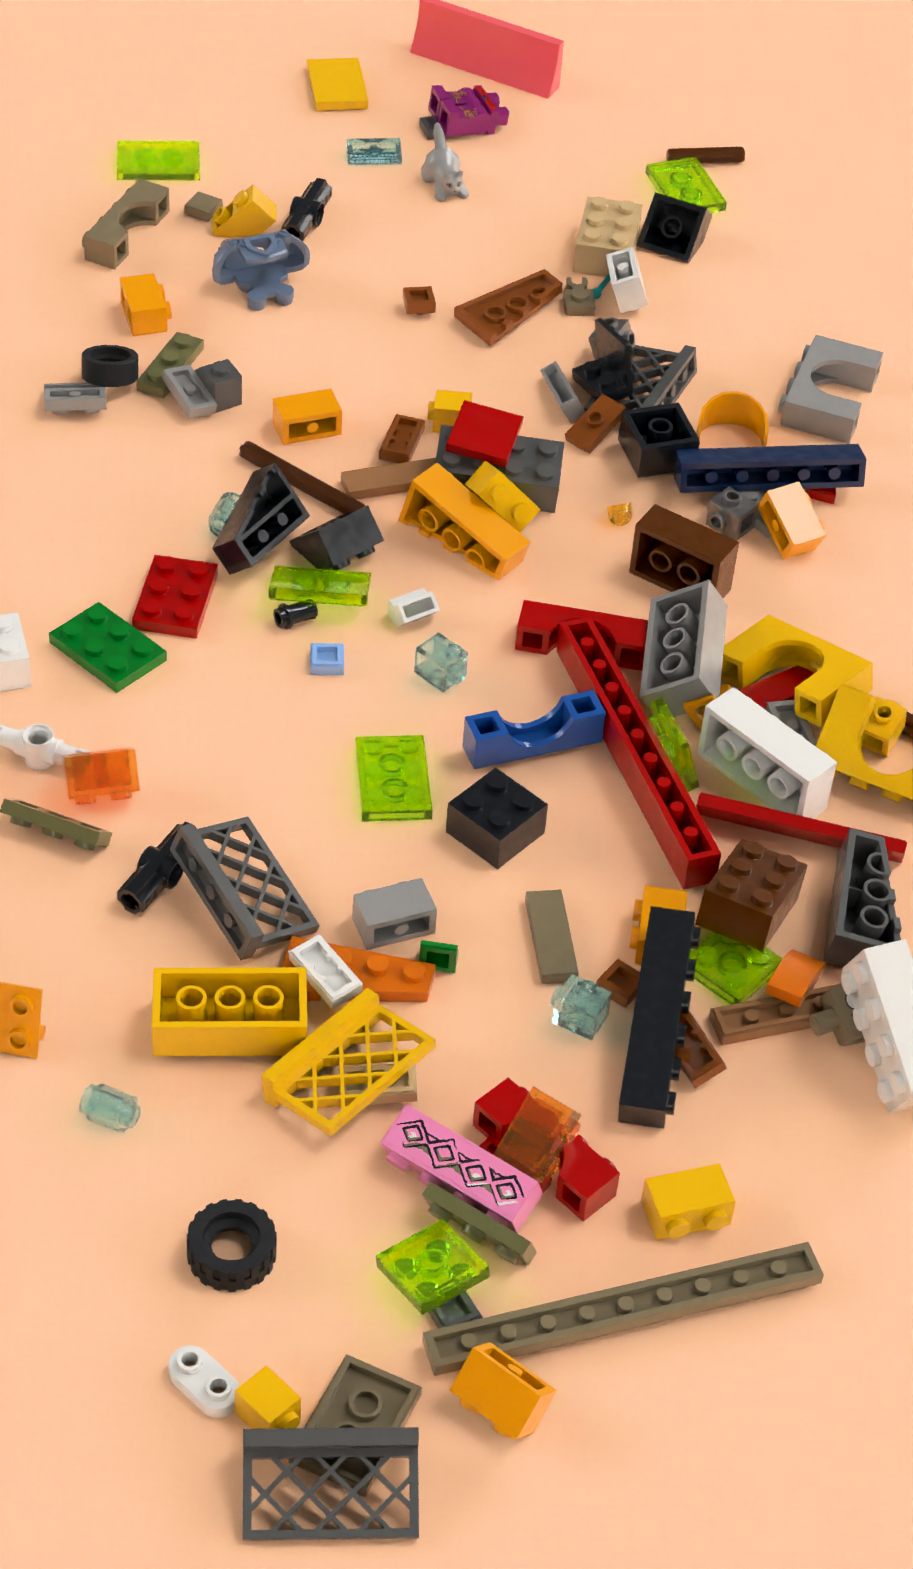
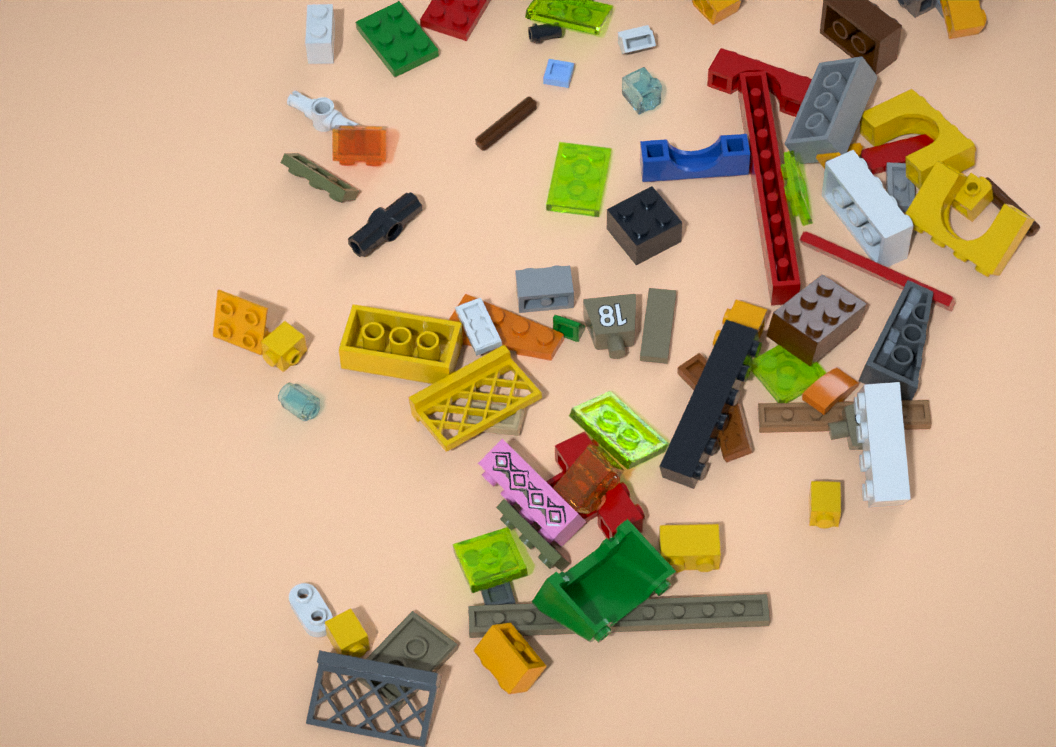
camera: 20 degrees right, 10 degrees up
(69, 1040) = (283, 347): none -> yellow brick
(221, 891) = (420, 258): dark grey fence -> none
(230, 1216) = (355, 538): black tyre -> none
(279, 725) = (505, 123): none -> reddish brown axle
(493, 940) = (611, 322): none -> dark tan torso
(548, 1067) = (618, 430): none -> clear neon green plate
(580, 1006) = (658, 385): clear light blue brick -> none
(603, 1266) = (605, 584): none -> green windscreen
(838, 1116) = (824, 504): none -> yellow brick

